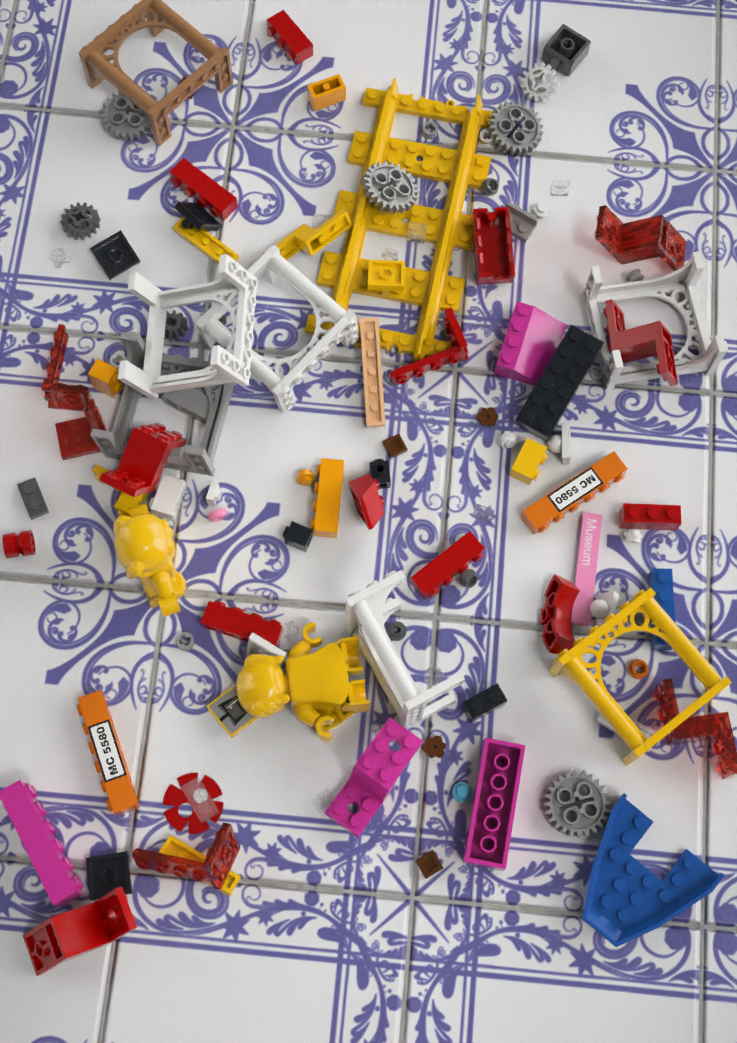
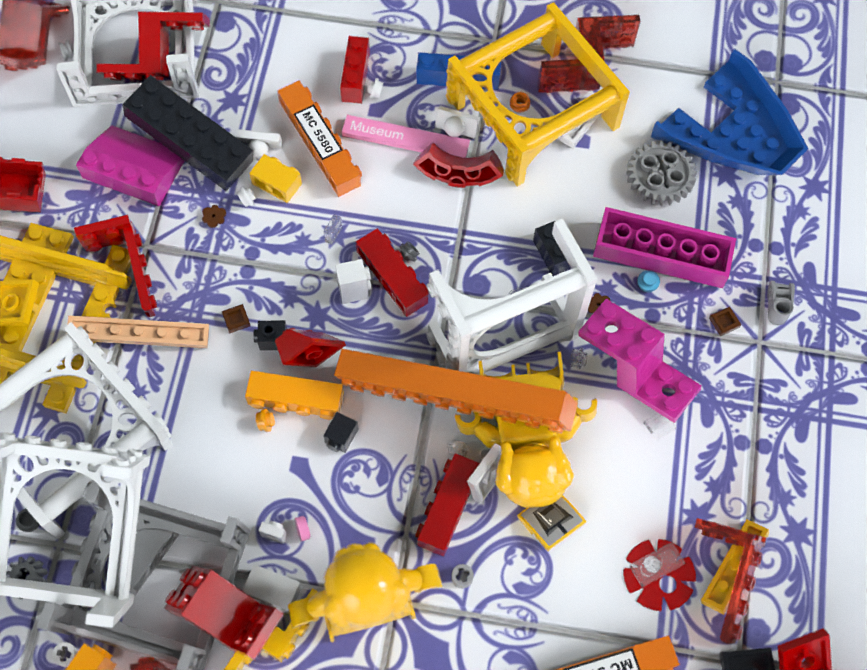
camera: 85 degrees left, 5 degrees down
(324, 617) = (458, 390): none -> orange brick
(431, 531) = (353, 281): none -> white brick
(454, 916) = (780, 298): none -> light grey piece

